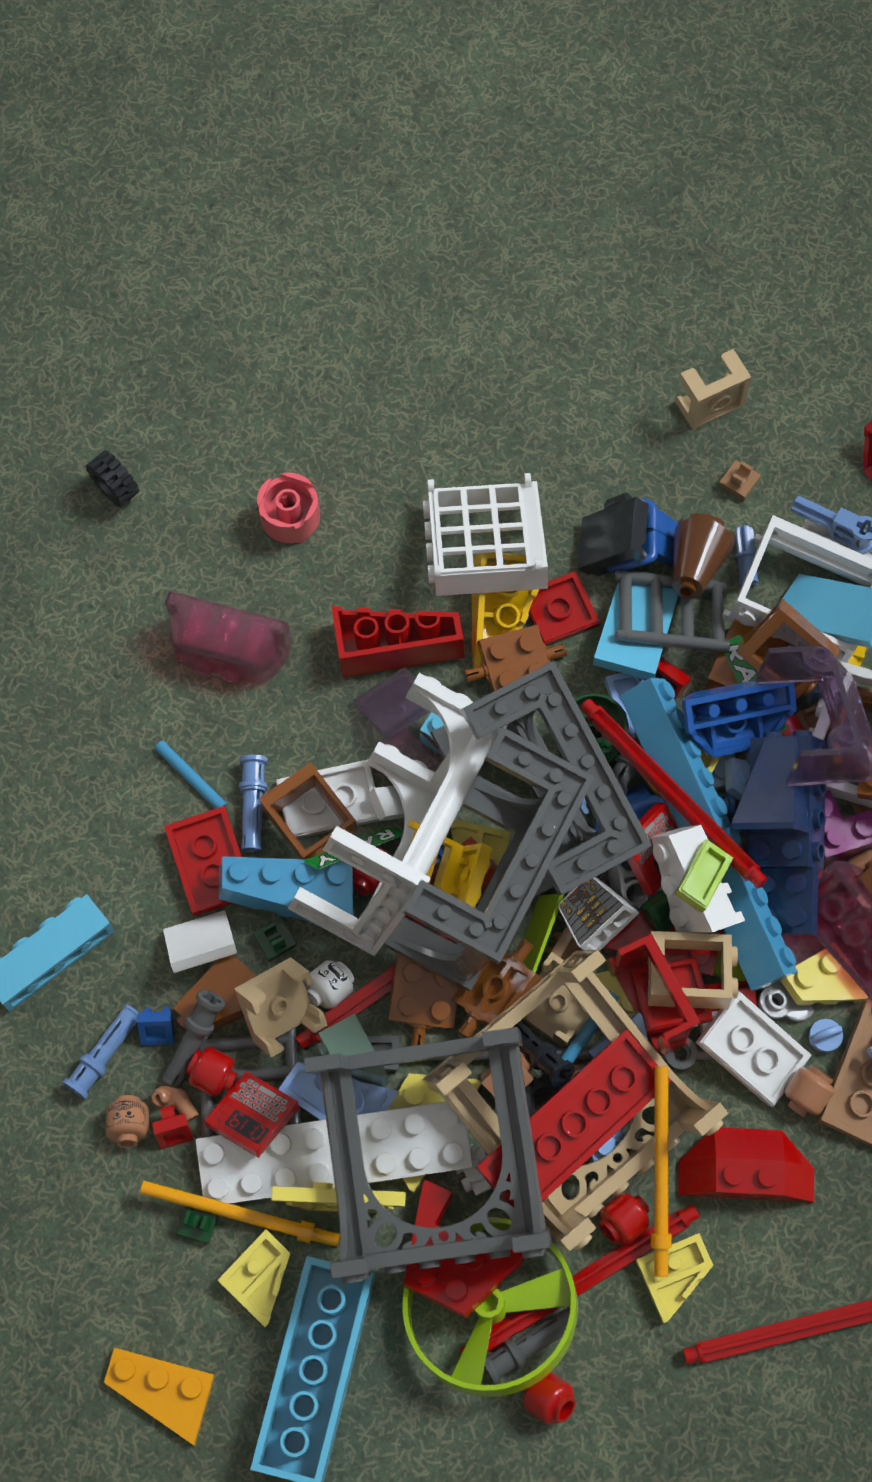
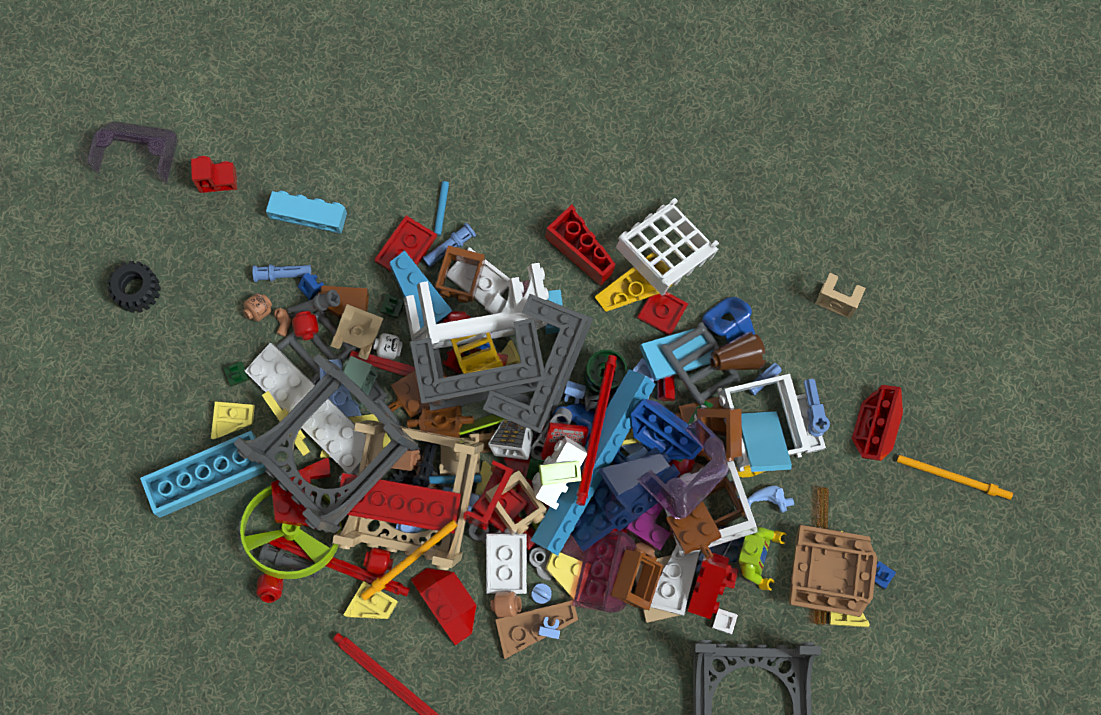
camera: 50 degrees right, 5 degrees up
(112, 478) = (557, 56): black tyre -> none
(163, 1390) = (152, 416): light orange wing -> none
(172, 1128) = (268, 329): red tile -> none
(199, 941) = (362, 273): white tile -> none
(226, 640) = (516, 171): clear pink windscreen -> none
(252, 1114) = (297, 358): red tile -> none
(288, 508) = (614, 154): coral brick -> none
(303, 1231) = (266, 422): light orange bar -> none
(374, 839) = (456, 304): sticker -> none
(387, 706) = (555, 270): clear purple tile -> none
(512, 657) = (615, 311): dark orange plate -> none
(613, 534) = (718, 306): black piece -> none
(740, 480) = (804, 346): medium nougat tile -> none

